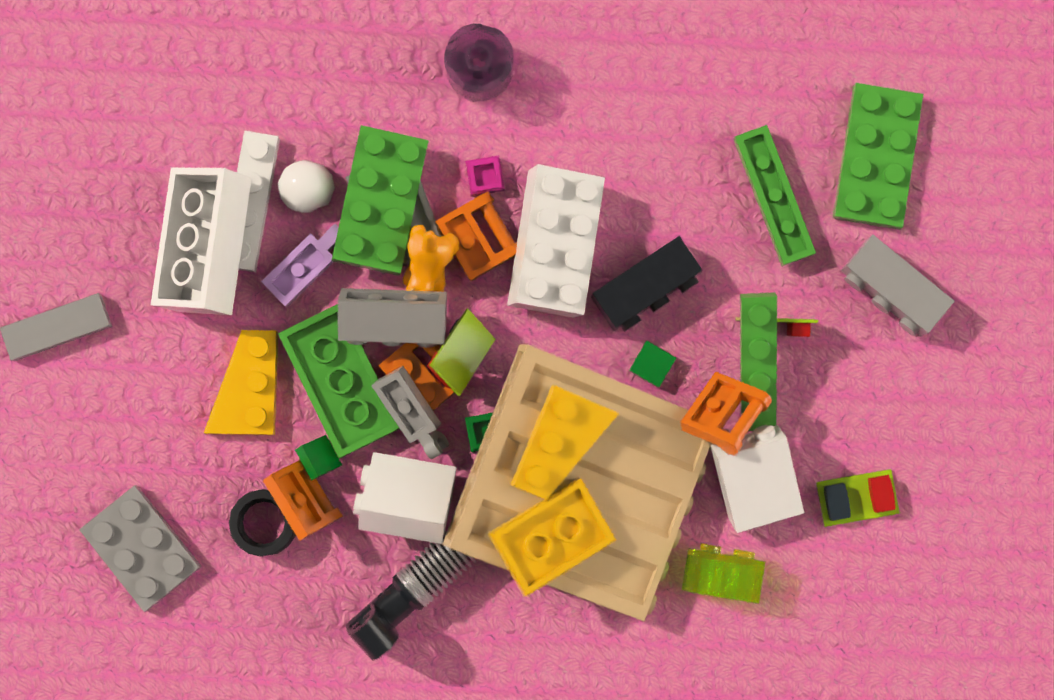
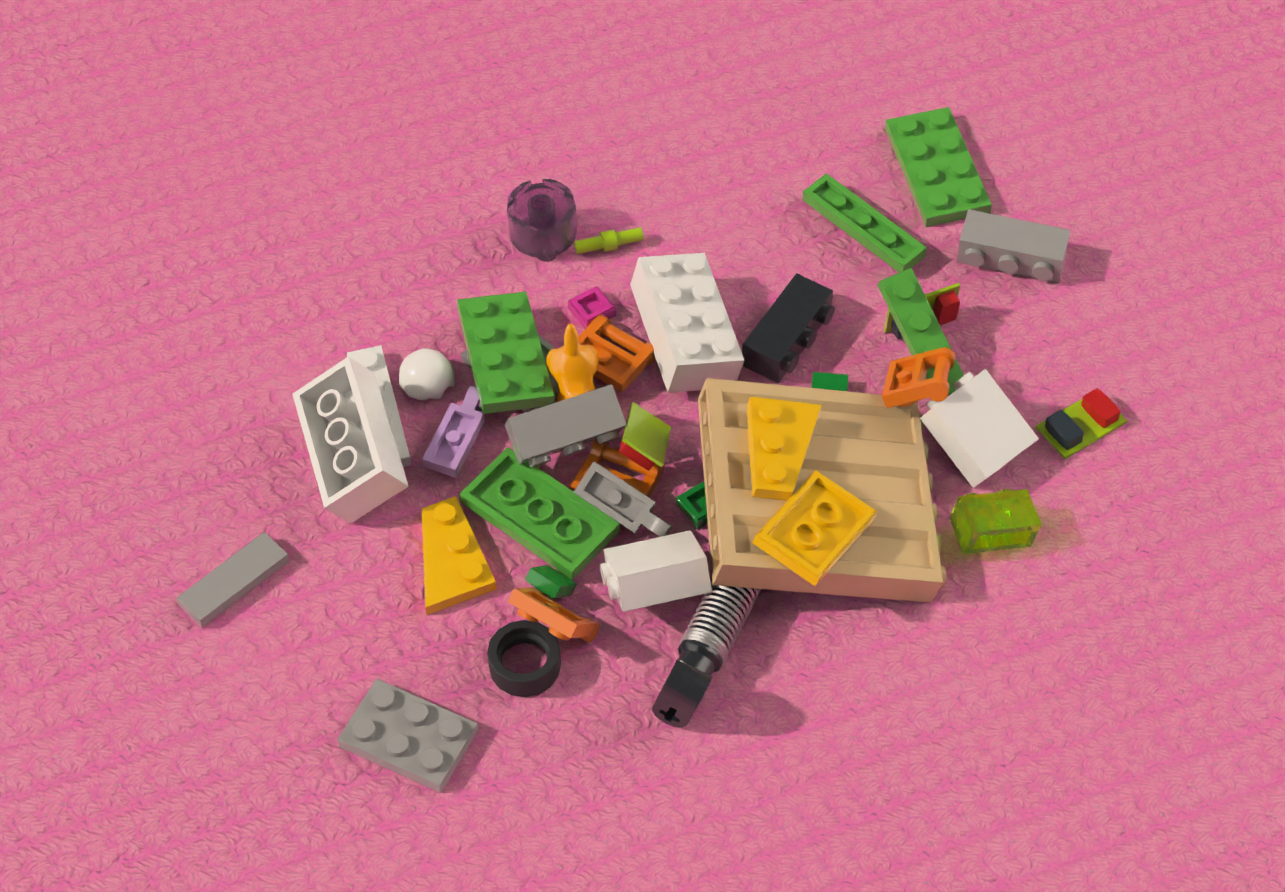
camera: 20 degrees left, 30 degrees down
(533, 107) = (608, 240): none -> lime bar

